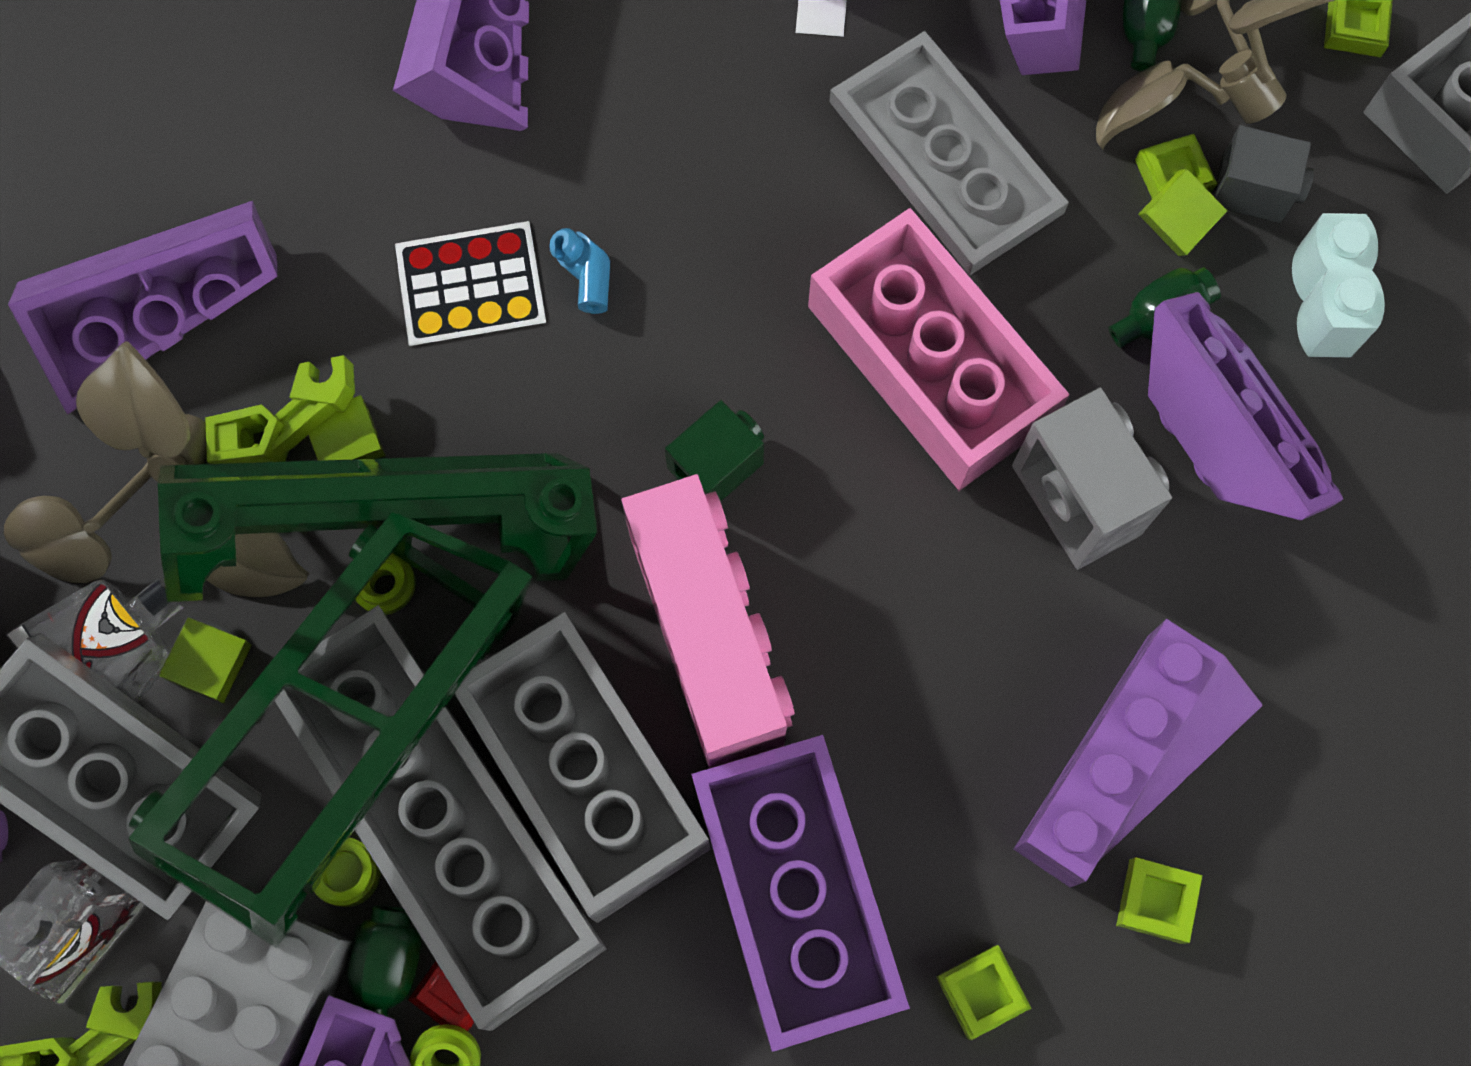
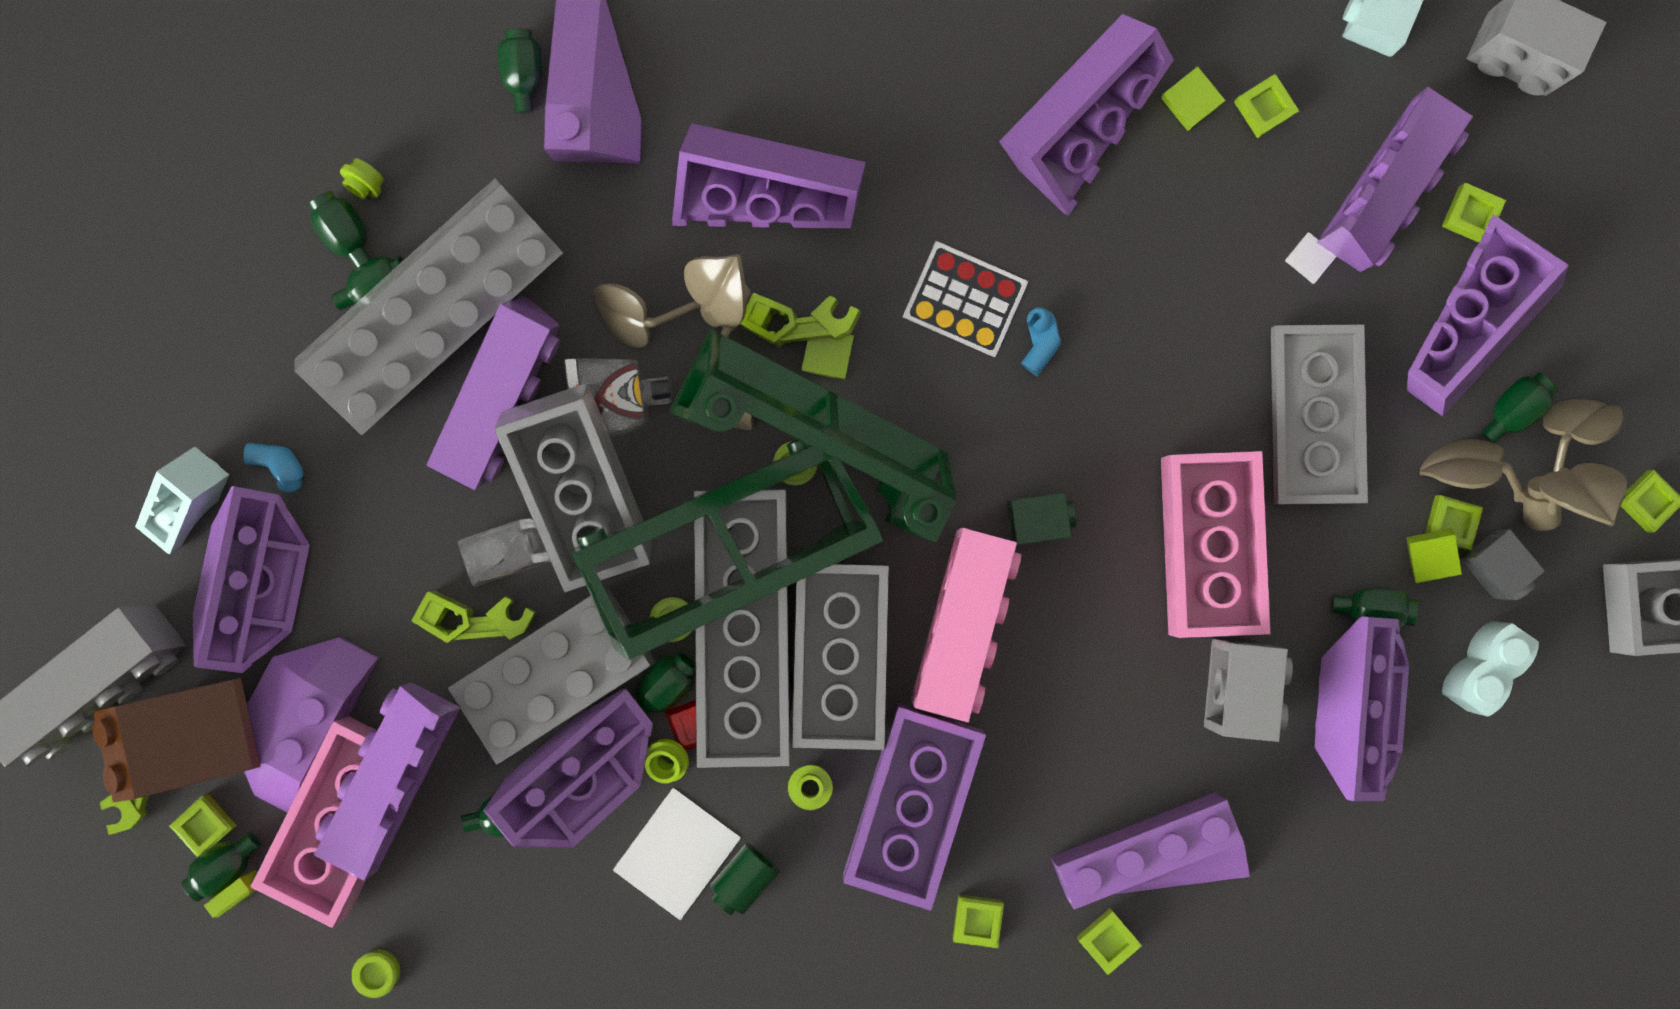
camera: 30 degrees right, 15 degrees up
(205, 660) = (665, 441): lime tile -> none
(676, 972) = (805, 773): none -> lime plate

